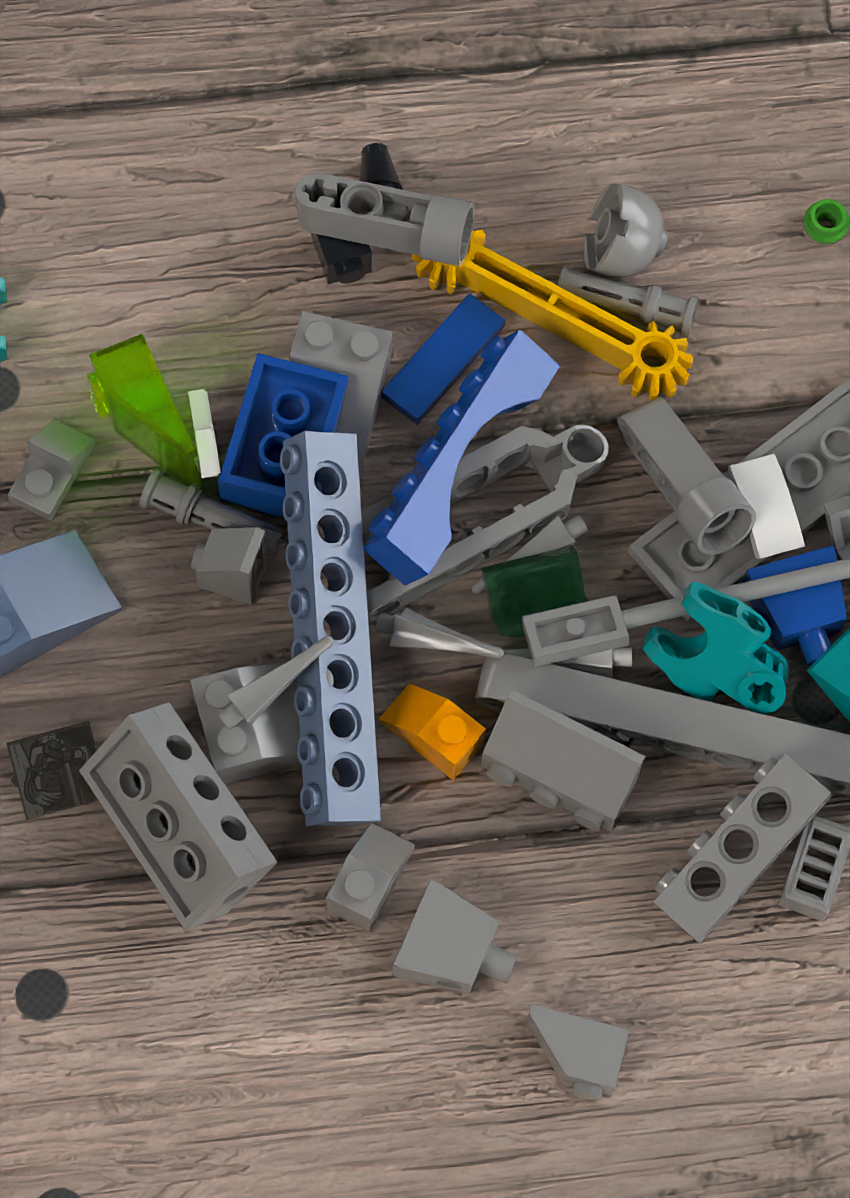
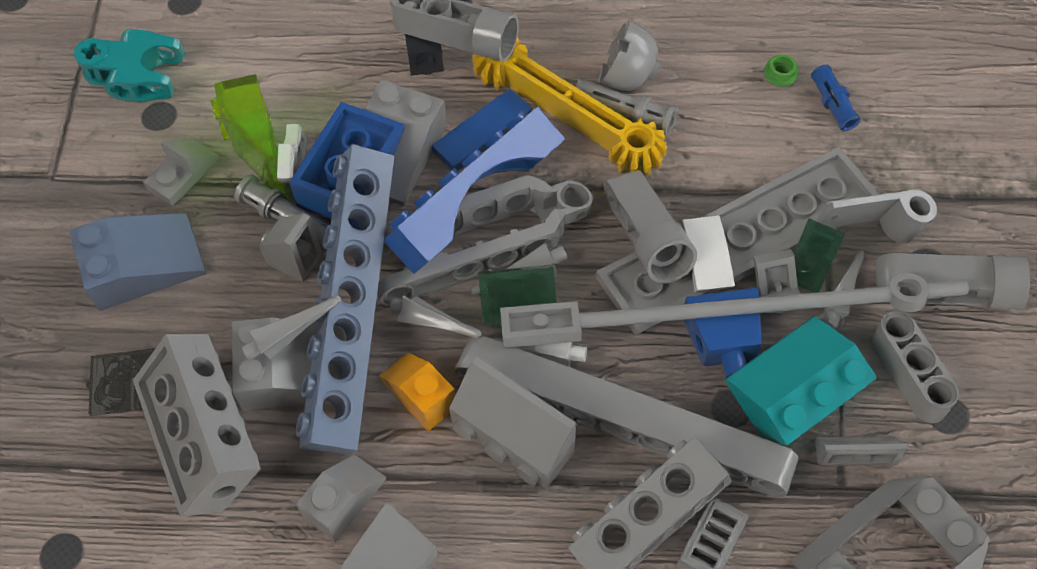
camera: 15 degrees right, 10 degrees down
(725, 656) = (659, 360): teal piece -> none

